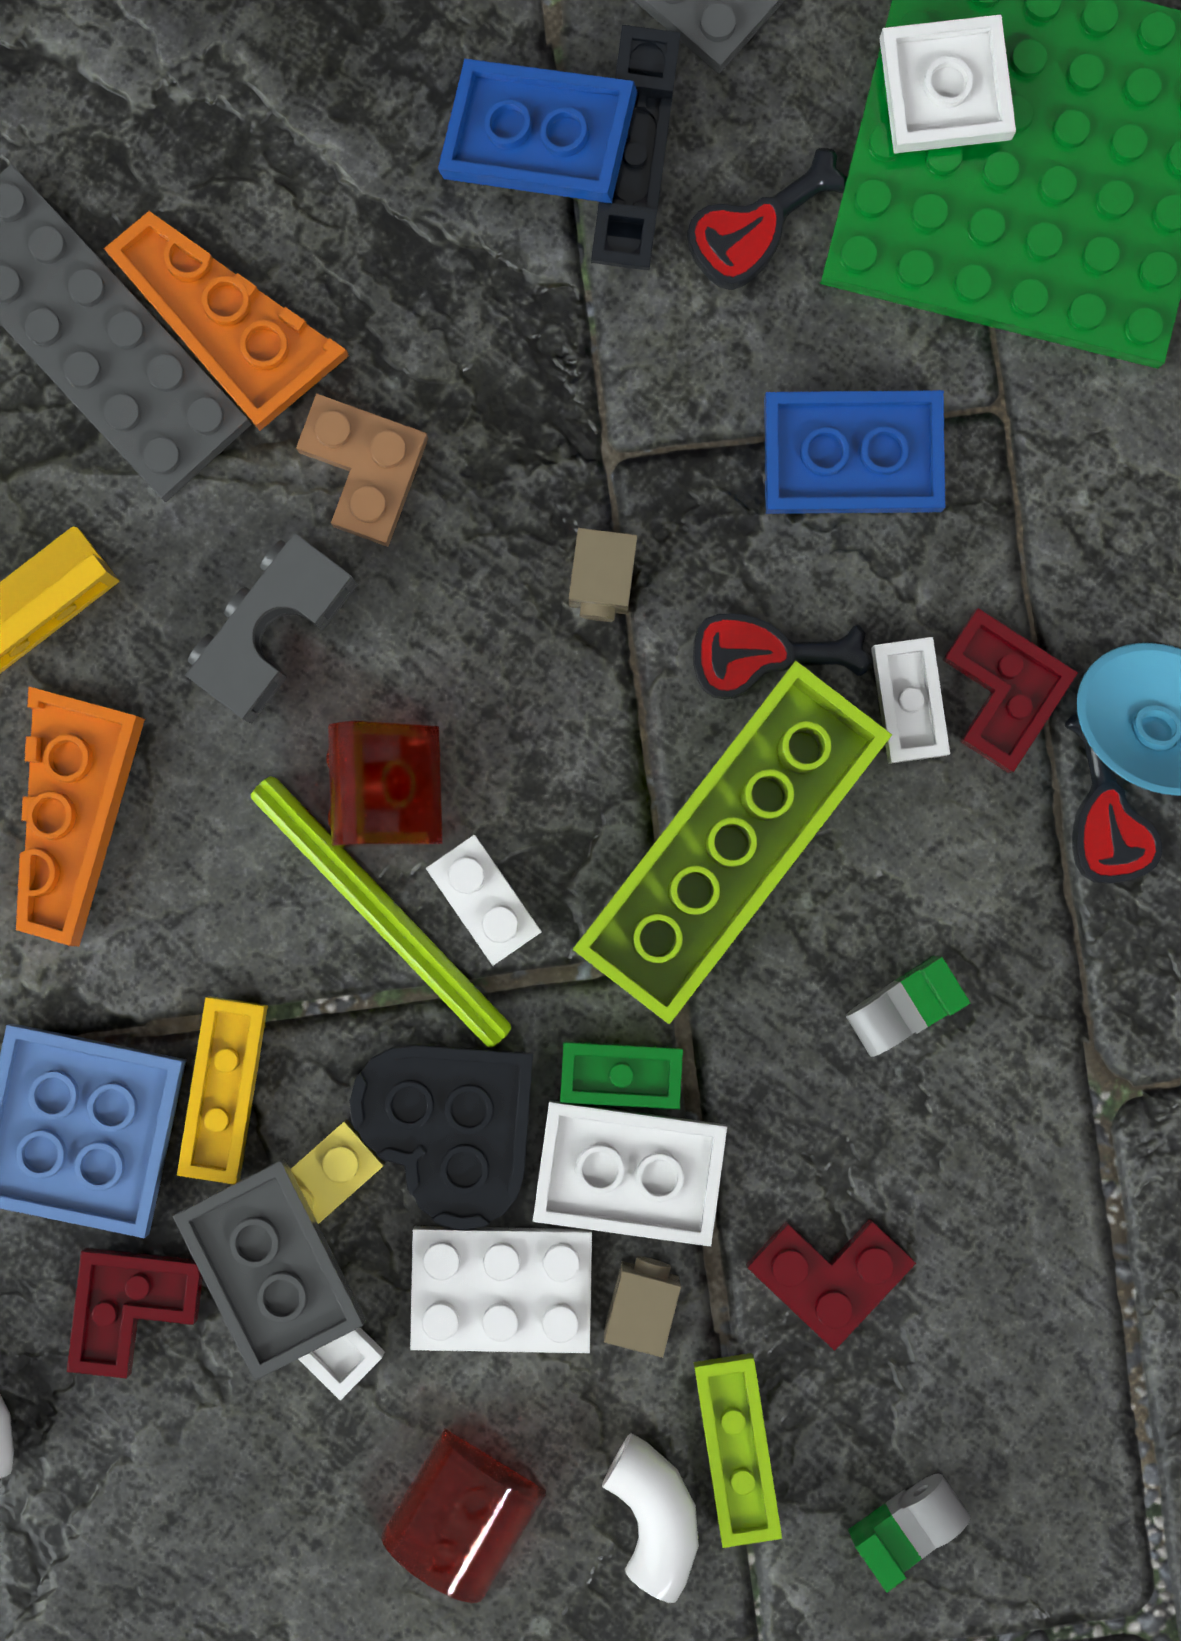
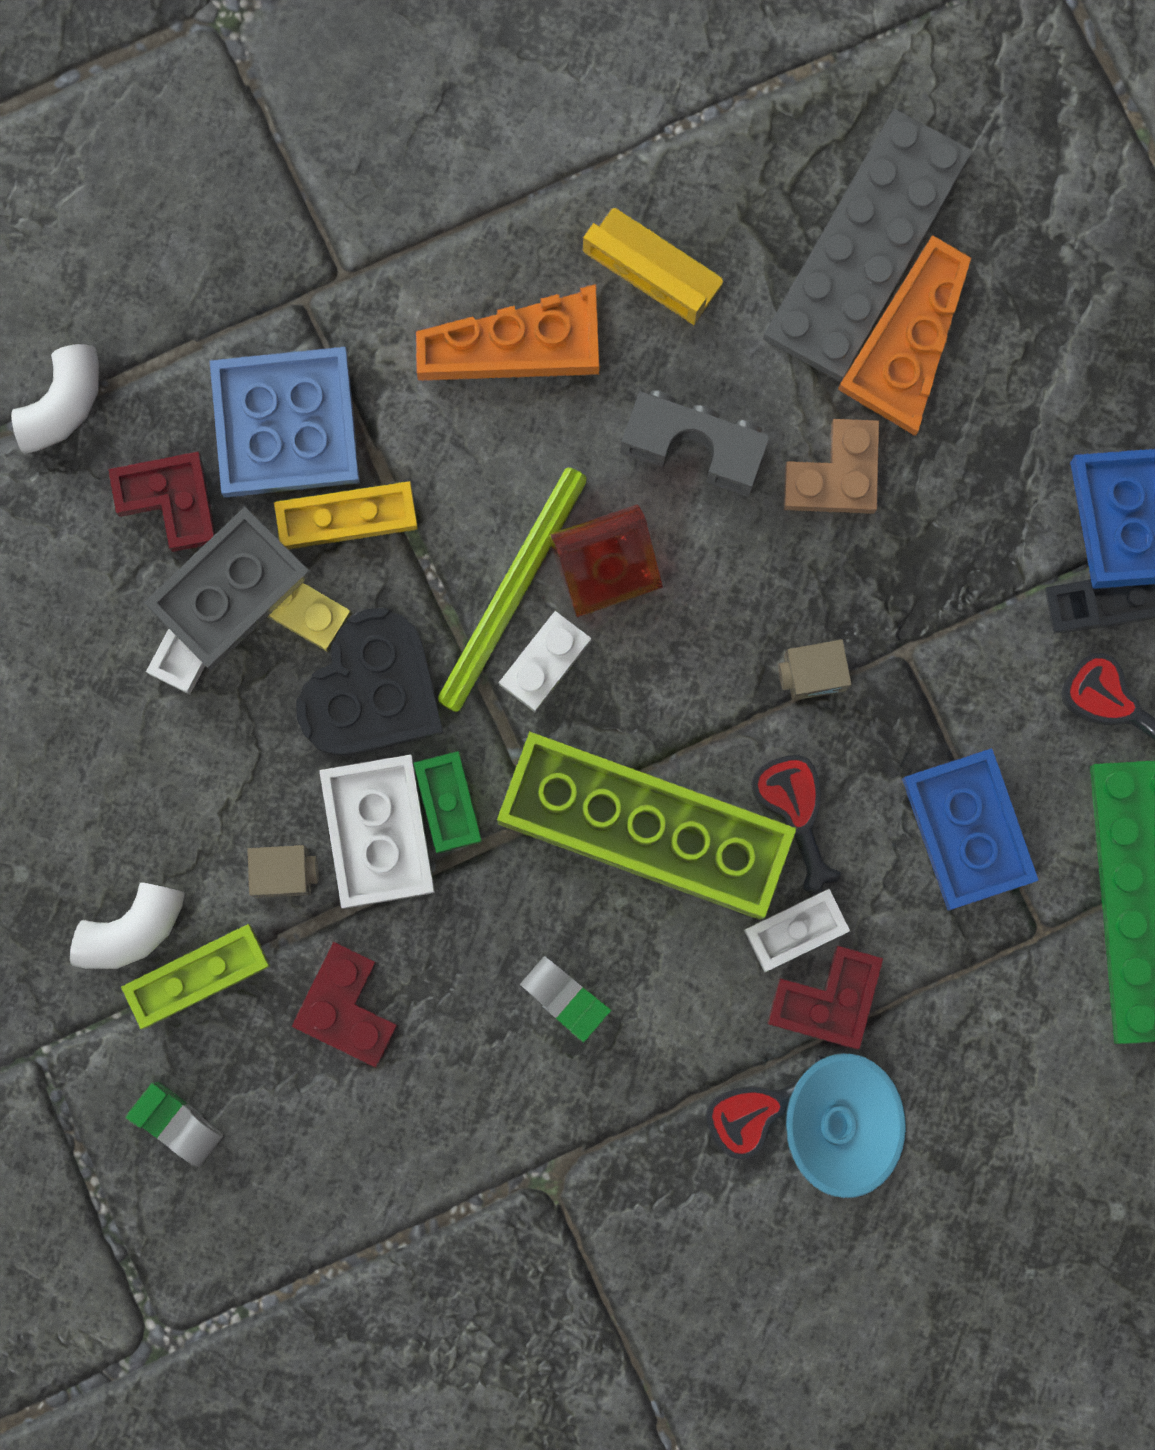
camera: 70 degrees right, 5 degrees down
(460, 1519) = (84, 789): clear red brick -> none
(501, 1289) = (261, 765): white plate -> none

